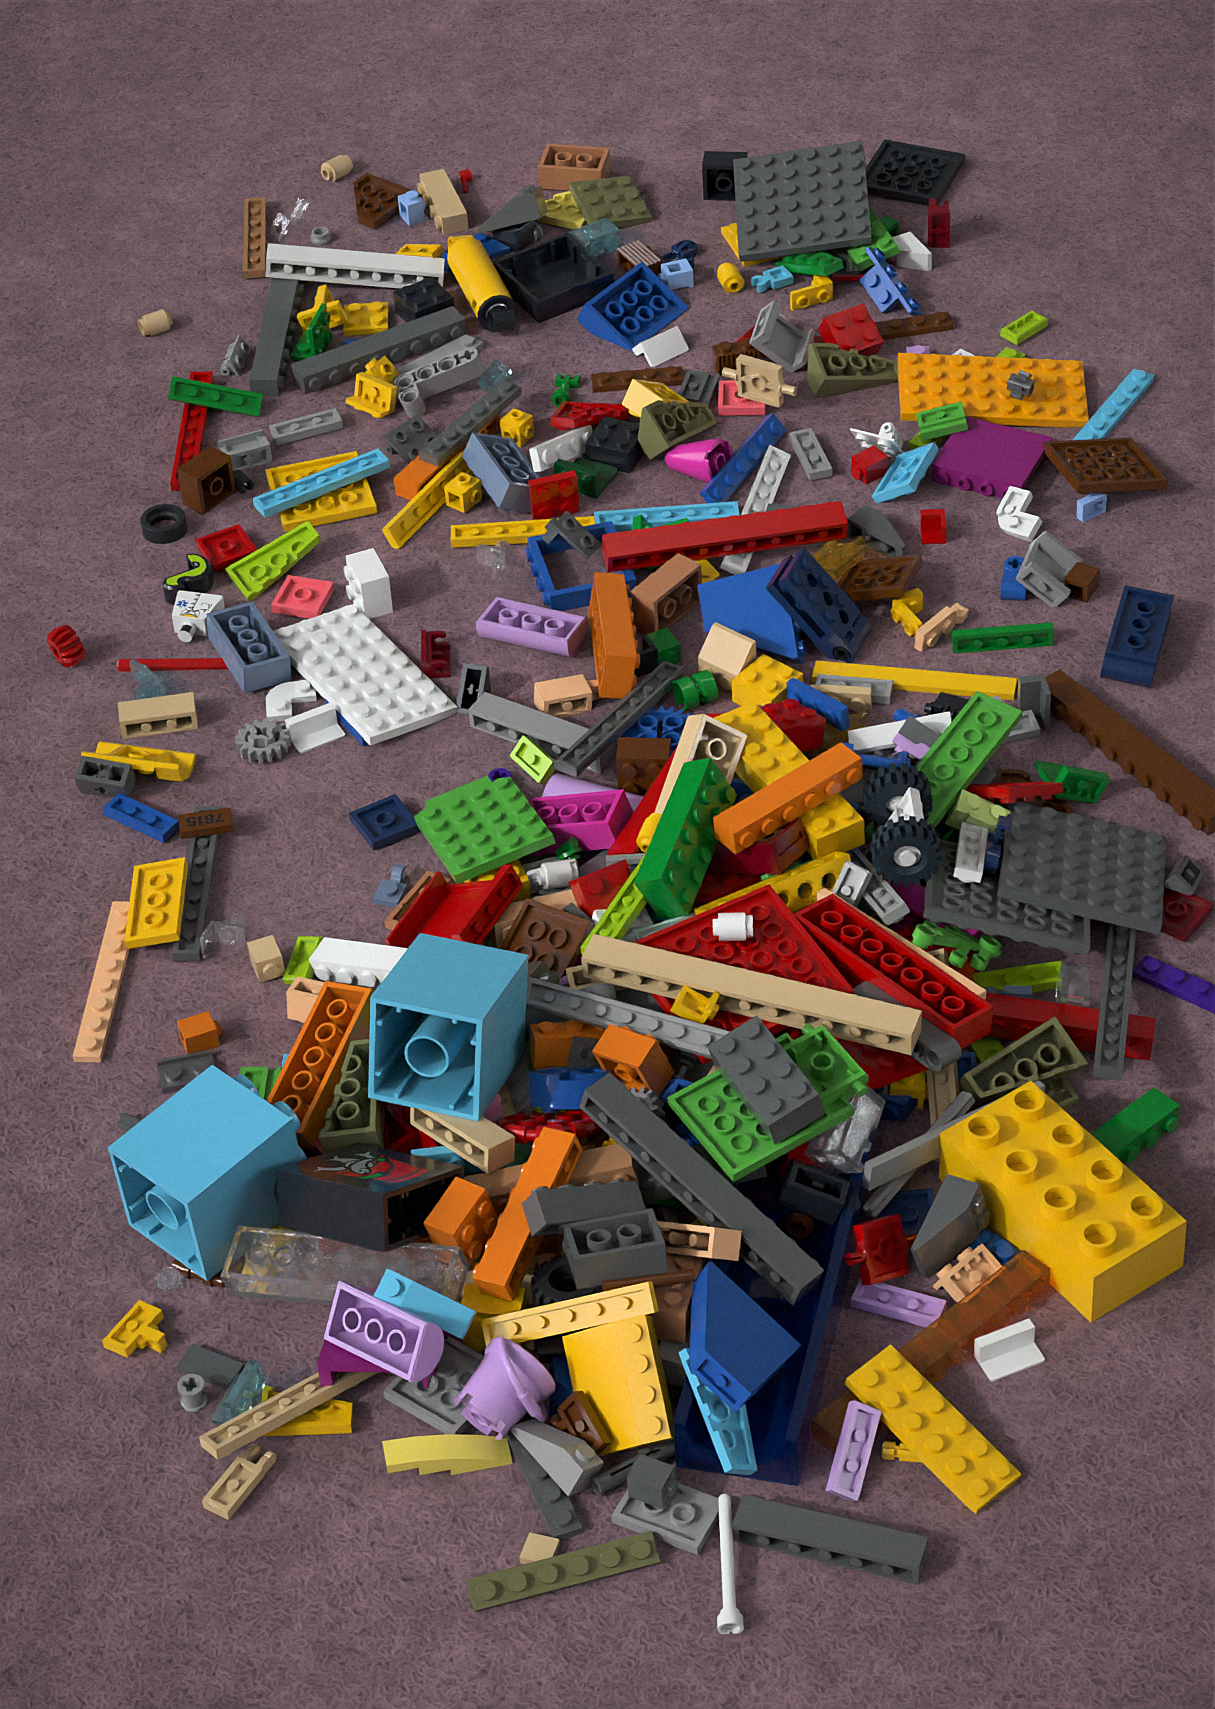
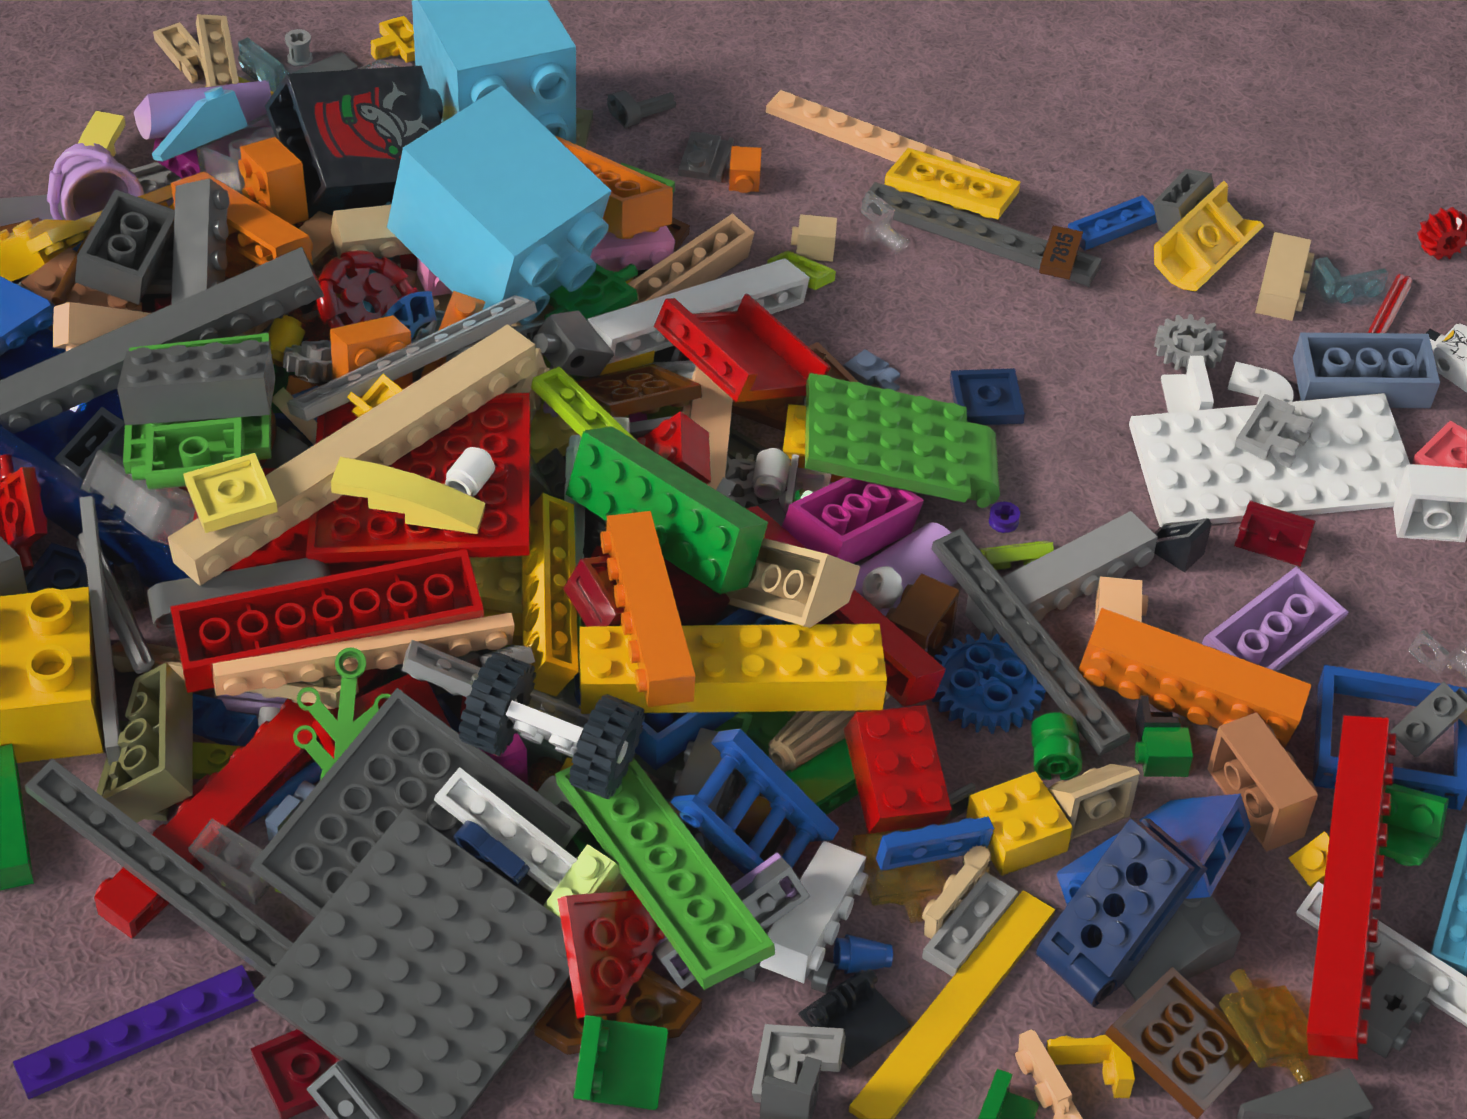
camera: 110 degrees right, 5 degrees up
(350, 665) = (1265, 426): none -> light grey plate
(627, 776) = (882, 587): none -> white plate
(781, 943) = (399, 491): none -> light yellow slope
(856, 1010) = (230, 492): none -> light yellow plate

